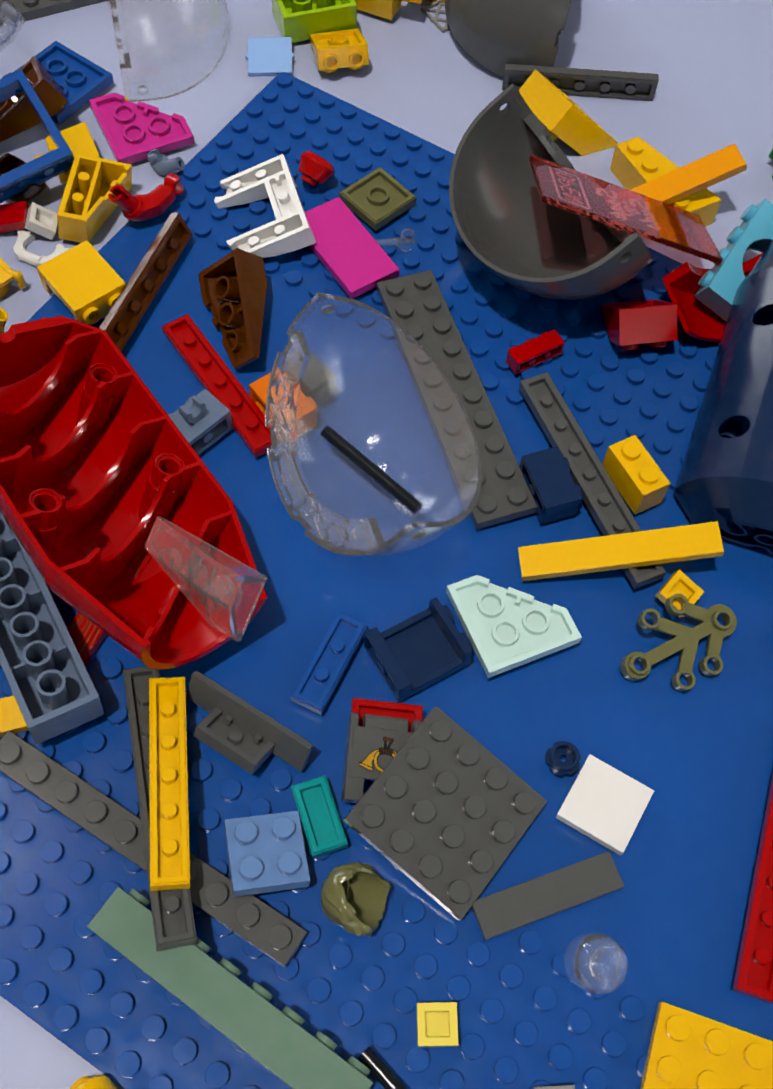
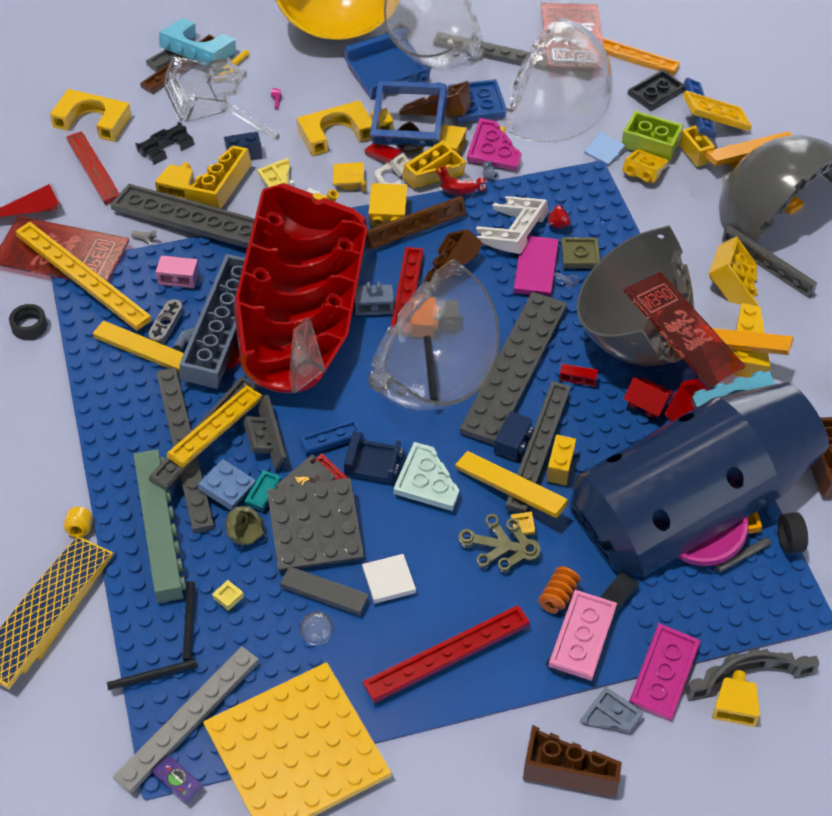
camera: 45 degrees right, 10 degrees down
(567, 750) = (390, 542): dark blue plate -> none

